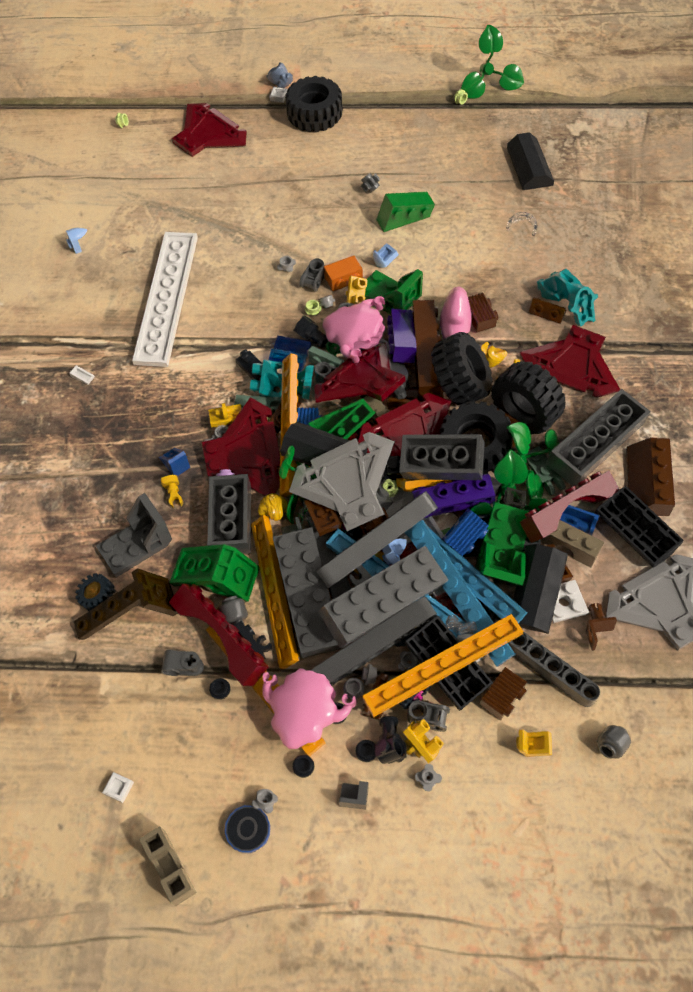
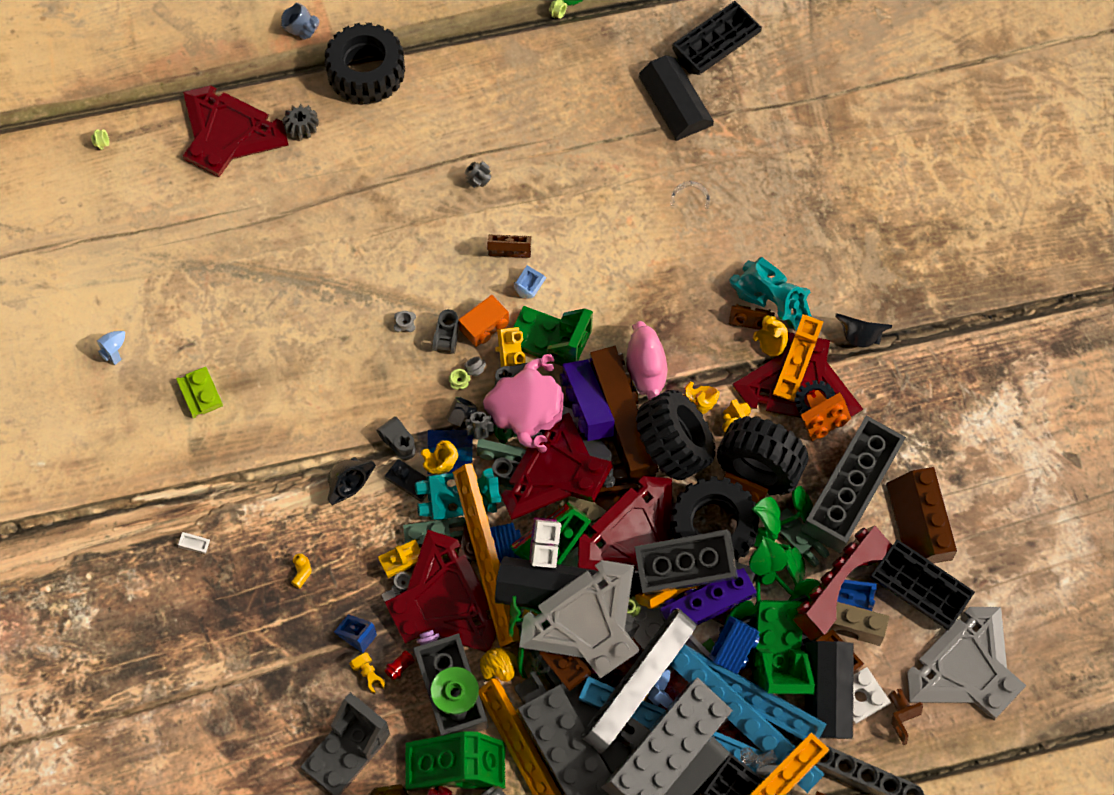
camera: 20 degrees left, 5 degrees up
(125, 280) = (199, 392): none -> lime plate
(153, 408) = (303, 570): none -> yellow arm
(165, 300) = (264, 408): white plate -> none
(197, 491) = (399, 665): none -> red pin
(207, 355) = (348, 478): none -> black hat
(227, 505) = (454, 679): none -> bright green dish
(253, 336) = (397, 438): none -> dark grey piece
(258, 131) = (300, 121): none -> dark grey gear
(278, 94) = (306, 50): white tile -> none
(279, 353) = (441, 460): none -> yellow hair
(314, 335) = (479, 425): none -> dark grey gear
(331, 414) = (544, 536): none -> white hips
(377, 230) = (509, 245): none -> reddish brown bracket
(404, 209) = (535, 207): green wedge -> none
(482, 313) = (674, 341): reddish brown brick -> none
(514, 498) = (775, 589): clear smoke leg -> none
(561, 323) = (772, 336): none -> yellow hair
(569, 130) = (715, 38): none -> black piece
(577, 341) = (798, 358): none -> light orange slope
(586, 380) = (821, 409): none -> orange plate
(633, 335) = (860, 332): none -> black hat

